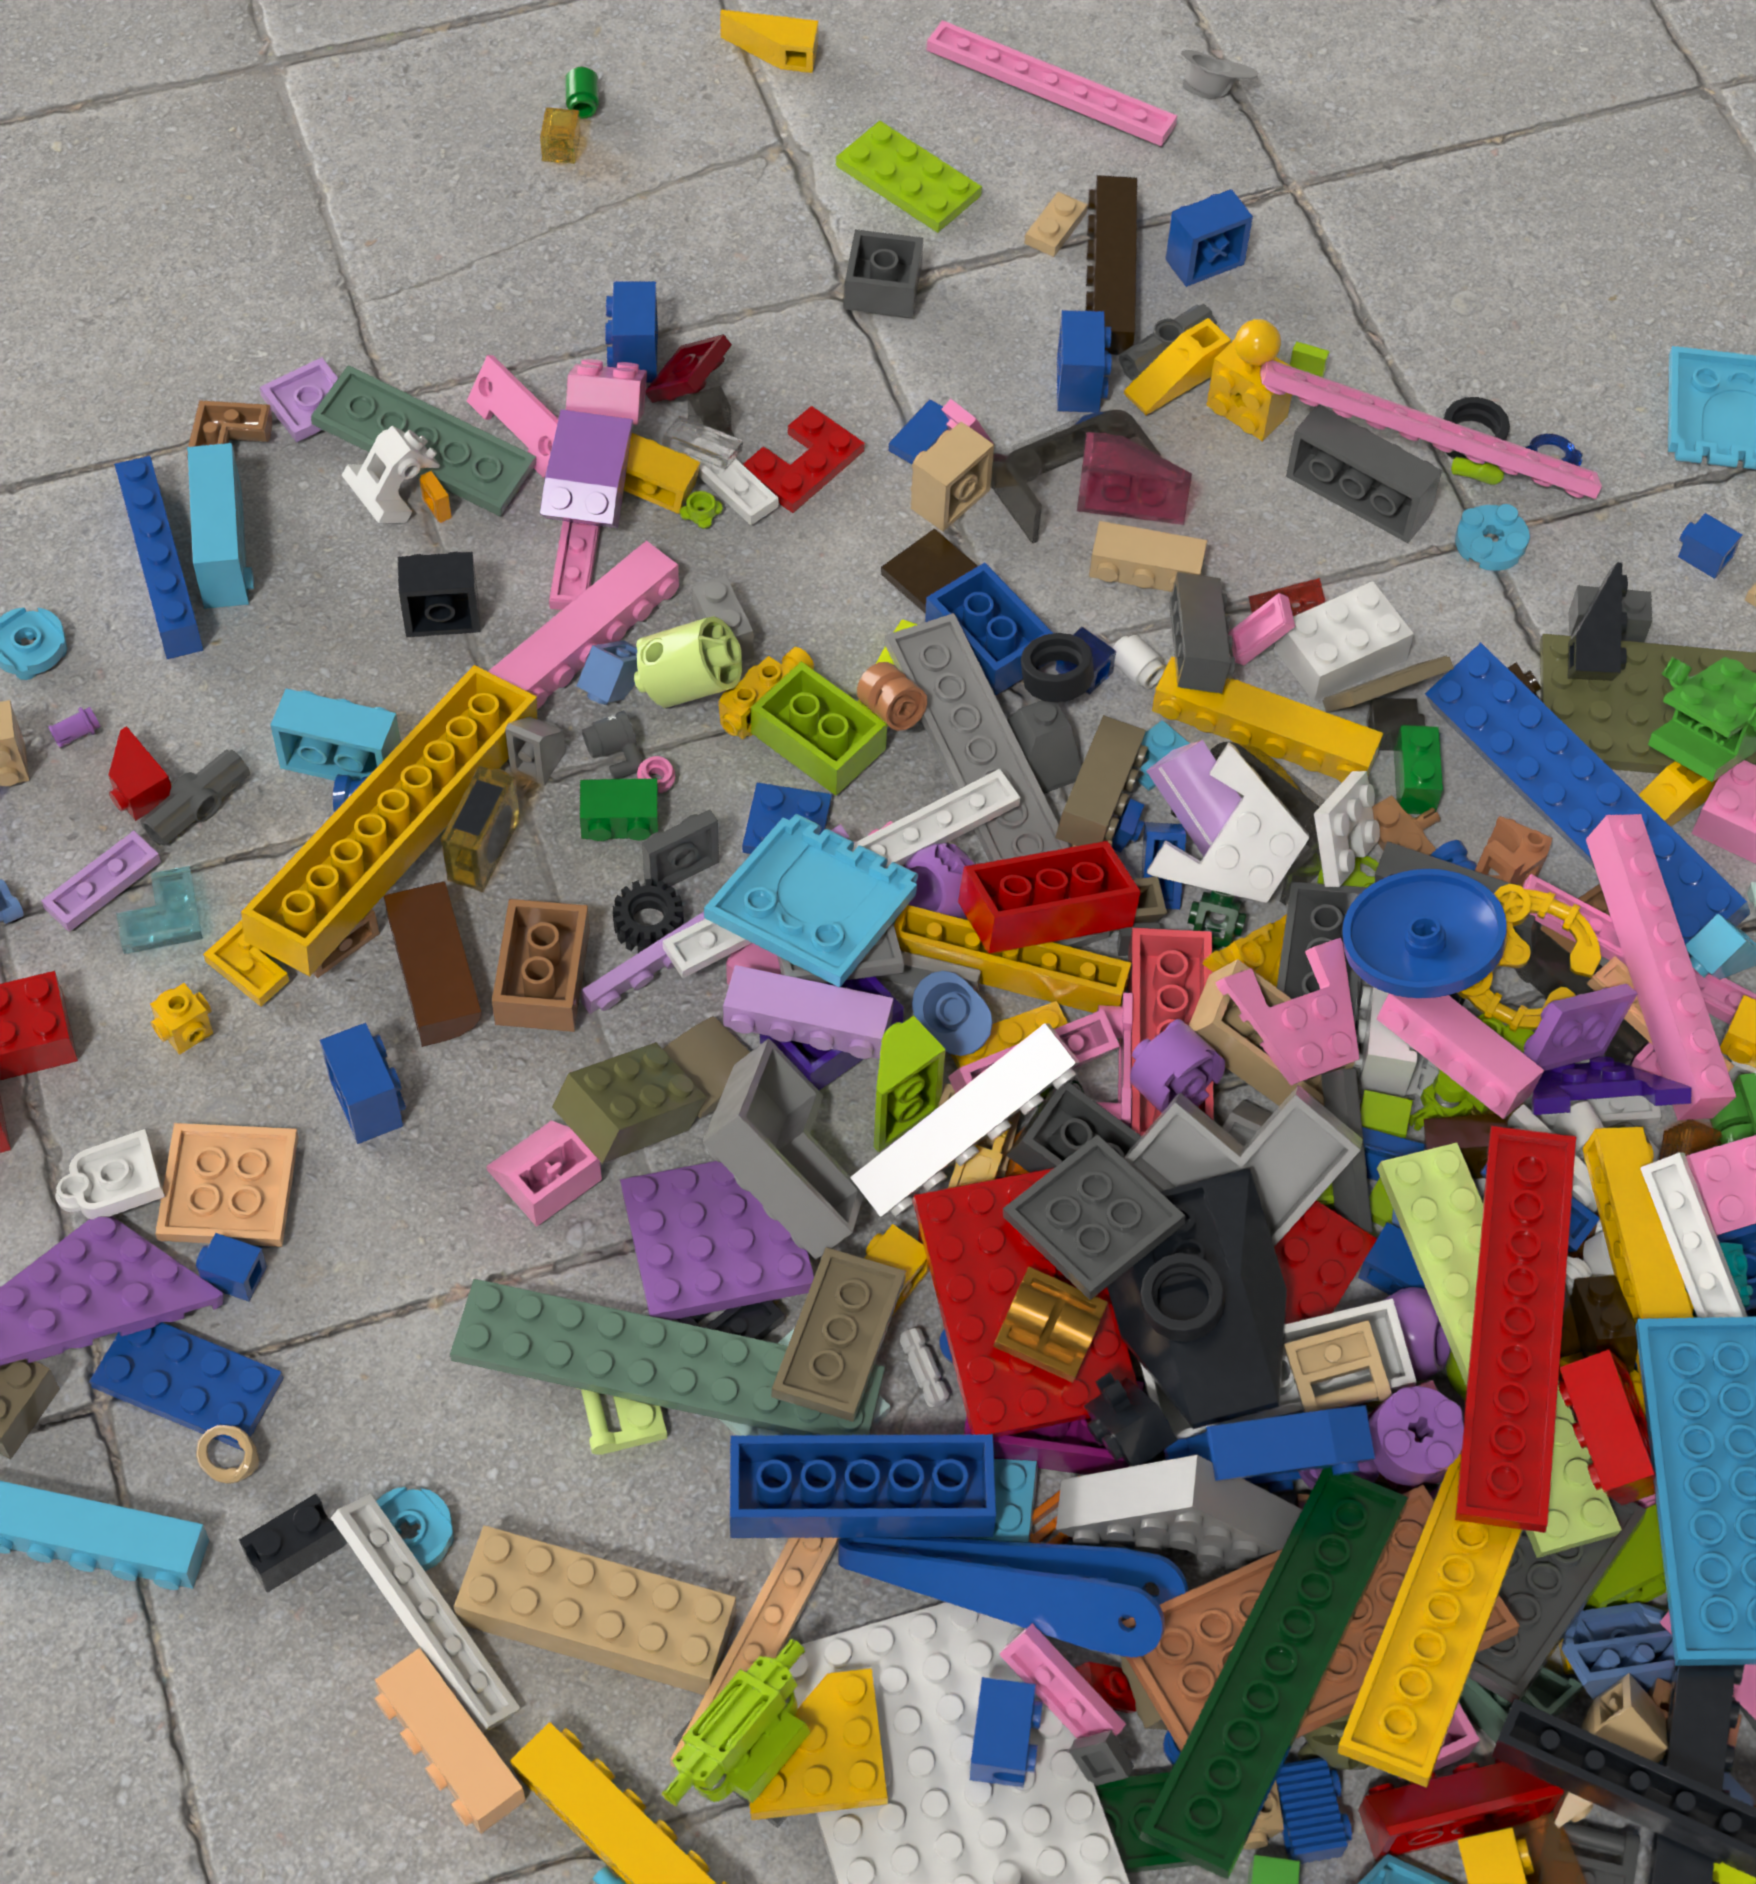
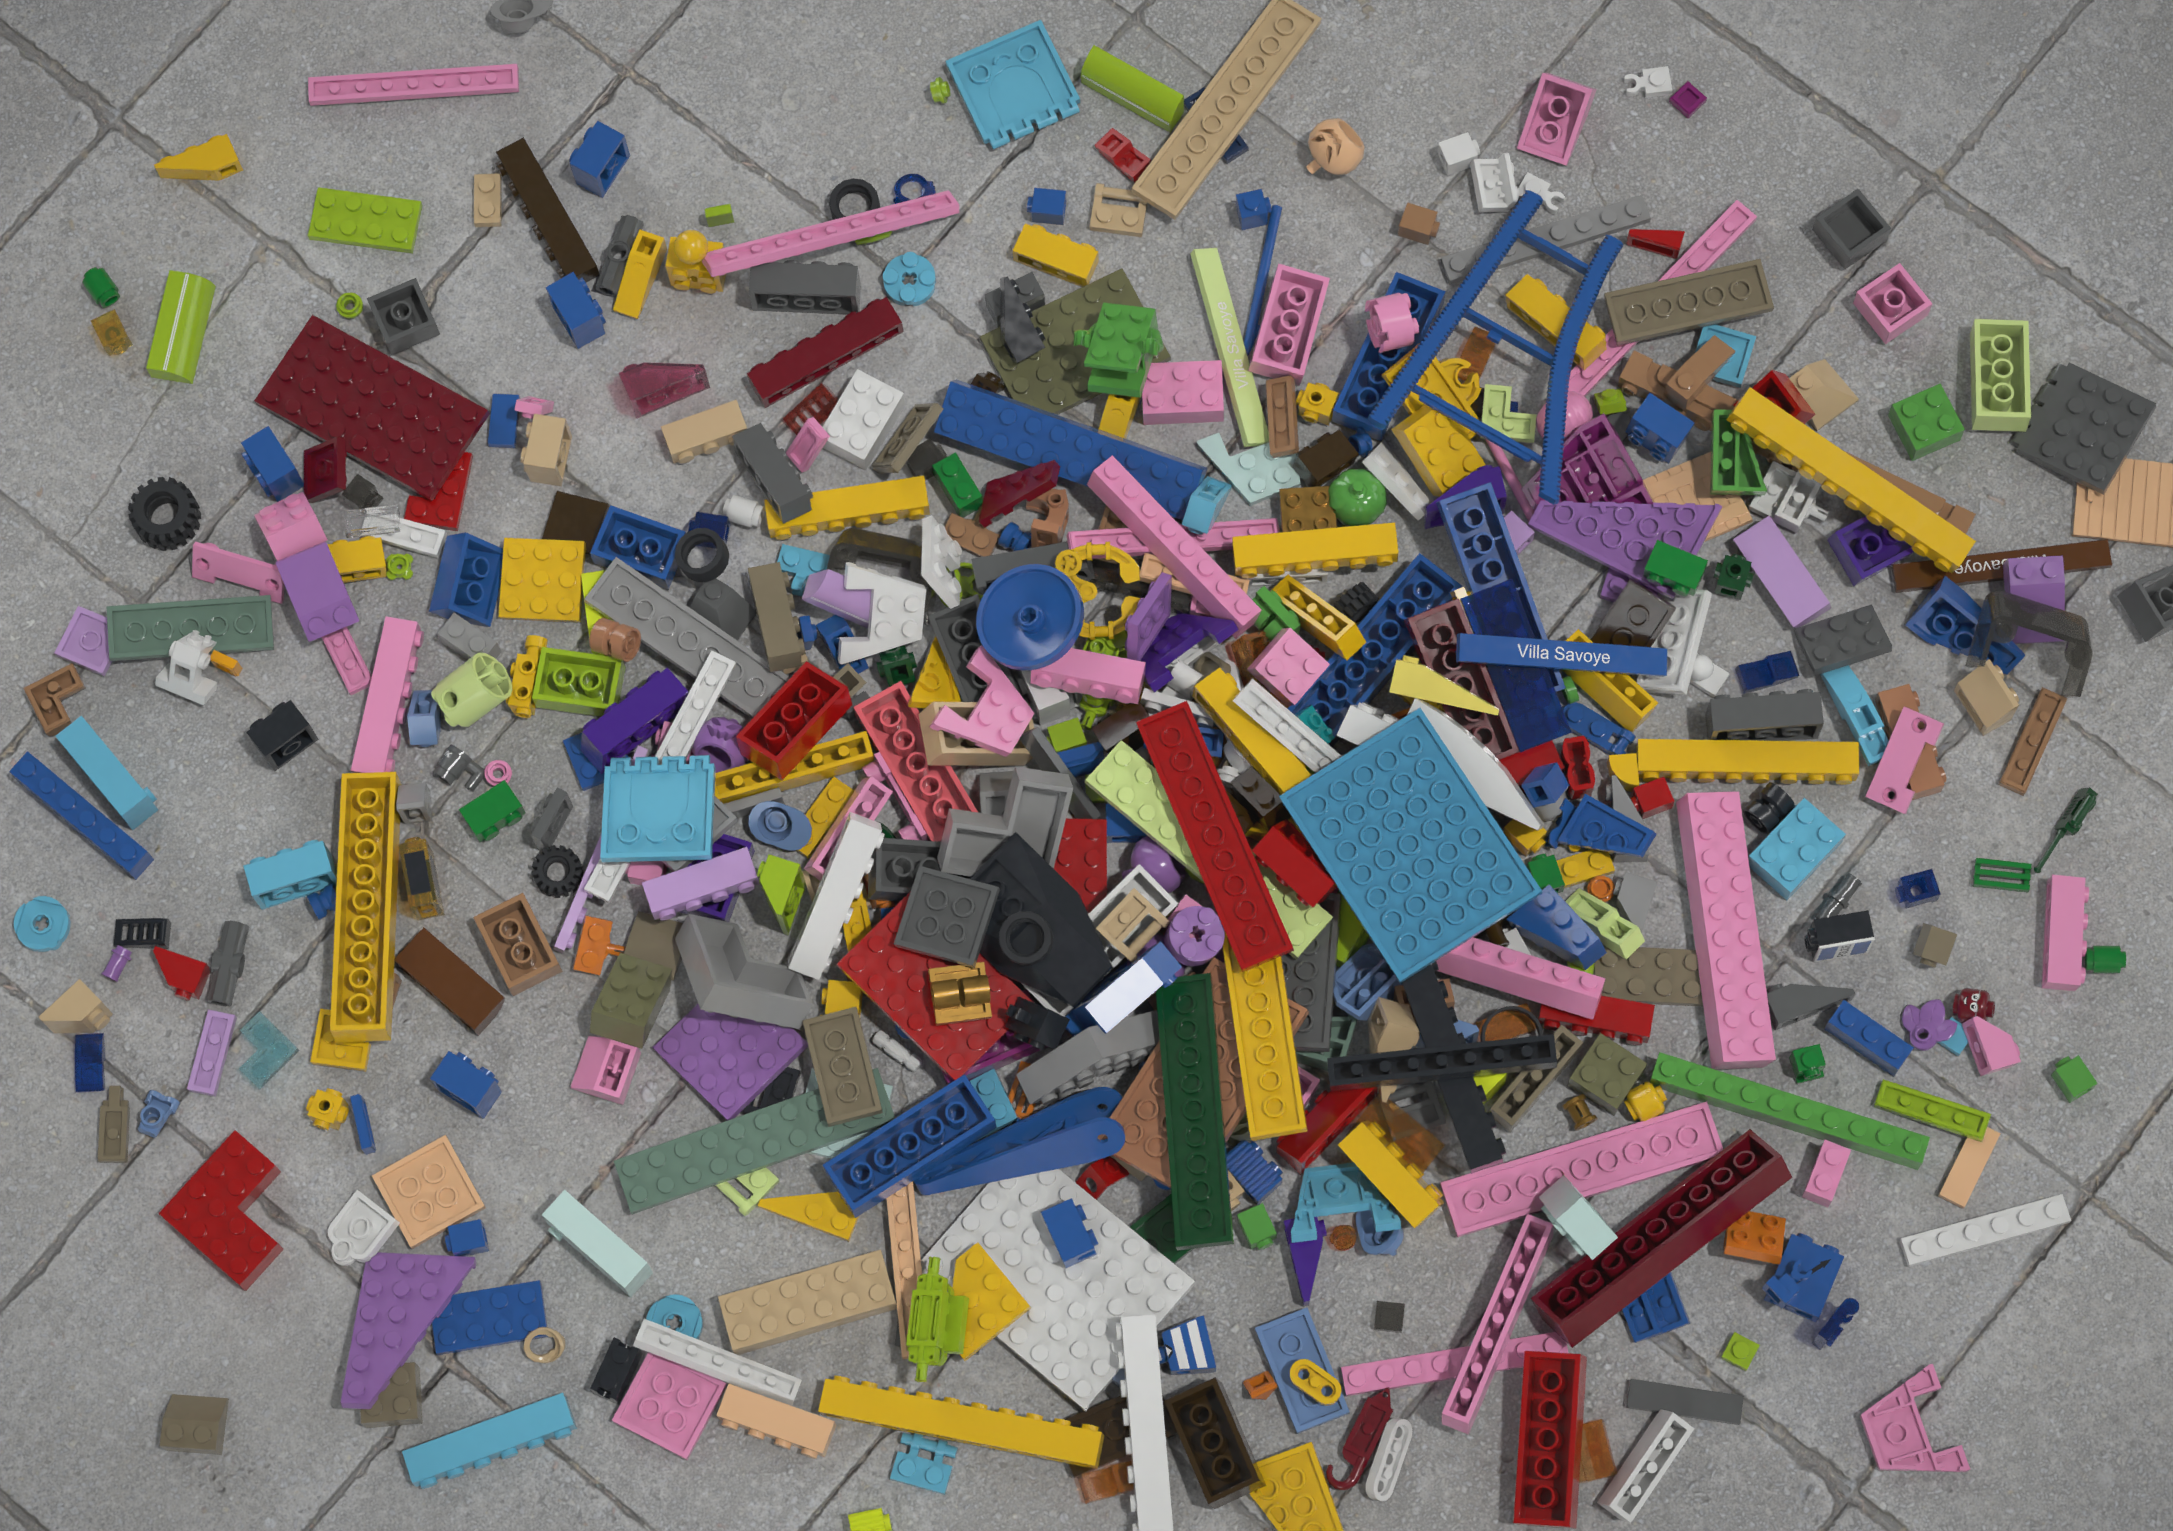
camera: 25 degrees left, 15 degrees up
(147, 730) = (163, 935): none -> black slope
(209, 1060) = (363, 1124): none -> blue tile
(327, 1630) = (669, 1404): none -> bright pink plate
(380, 1366) = (596, 1243): none -> light aqua brick
(478, 300) = (150, 499): none -> black tyre
(632, 1020) = (594, 945): none -> orange plate
(635, 167) = (180, 327): none -> lime brick
(689, 1504) = (819, 1211): none -> yellow wing
(771, 559) = (468, 579): none -> blue slope
(792, 343) = (380, 406): none -> dark red plate
(833, 240) = (346, 299): none -> lime plate
(851, 605) = (542, 580): none -> yellow plate
(854, 790) = (633, 719): none -> dark purple brick
(1048, 451) = (581, 405): clear smoke windscreen -> none
(1060, 1685) = (1086, 1190): bright pink plate -> none
(1101, 1758) = (1128, 1214): dark grey plate -> none
(1175, 1064) = (935, 790): medium lavender brick -> none
(1345, 553) = (825, 352): none -> dark red brick
(1505, 805) = (1007, 491): none -> dark red wing
(1647, 372) = (940, 90): none -> lime plate
(1688, 598) = (1056, 255): none -> yellow brick

